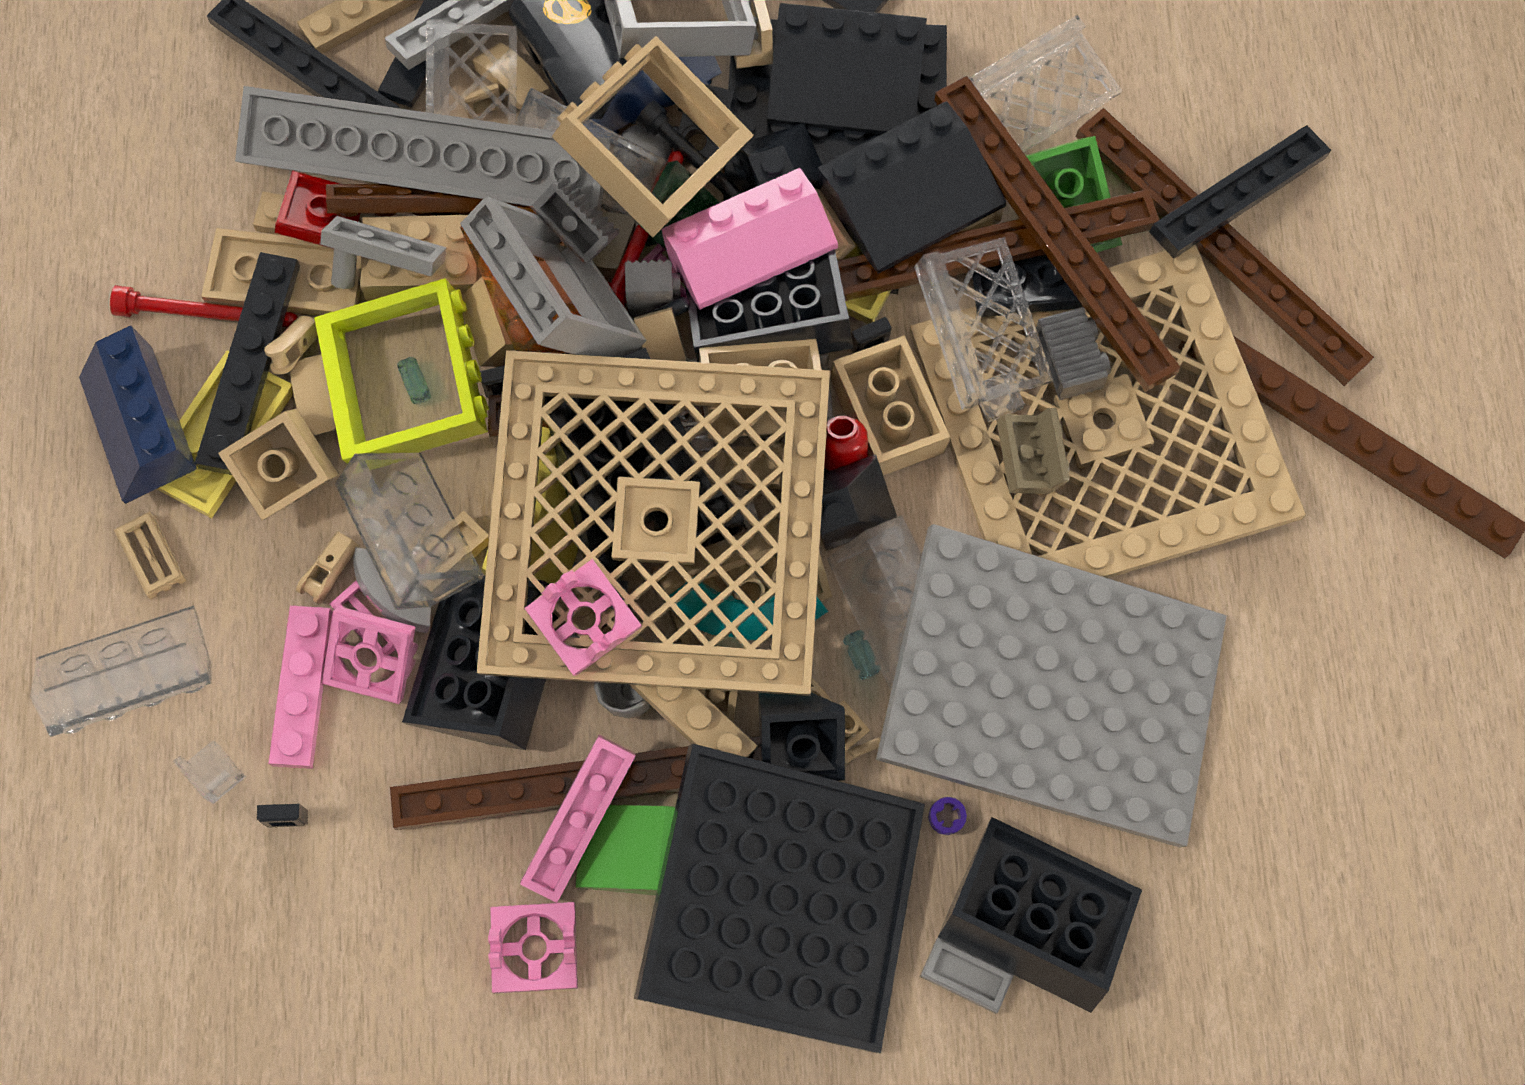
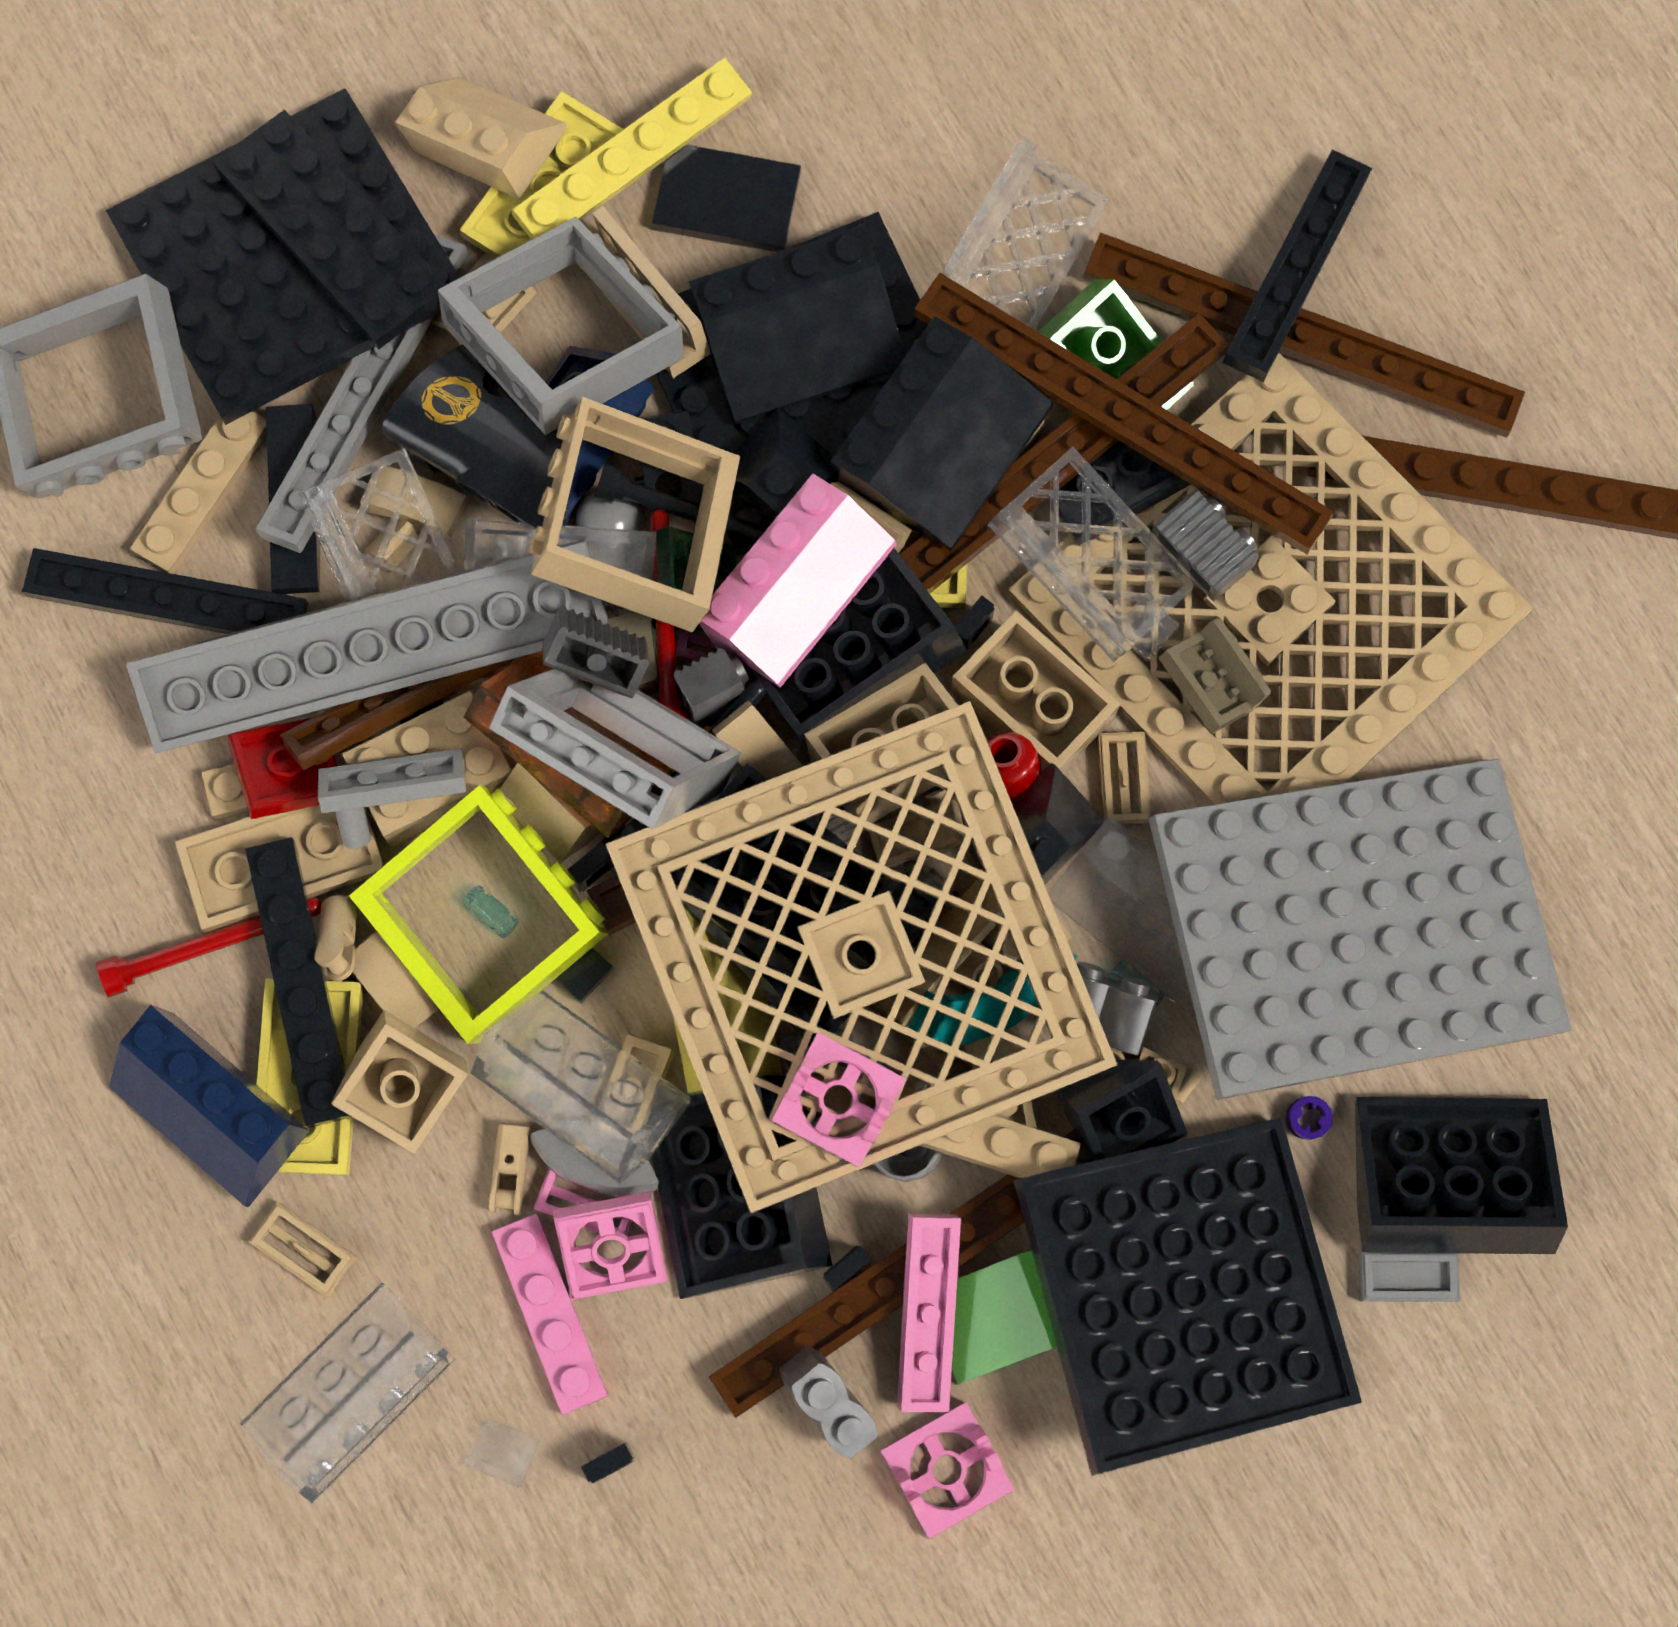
camera: 25 degrees left, 5 degrees up
(457, 456) = (585, 975): none -> black tile
(471, 858) = (828, 1402): none -> flat silver brick
(535, 756) = (846, 1268): none -> black tile
(836, 663) = (1121, 1007): none -> flat silver brick
(917, 529) = (1121, 738): none -> tan tile

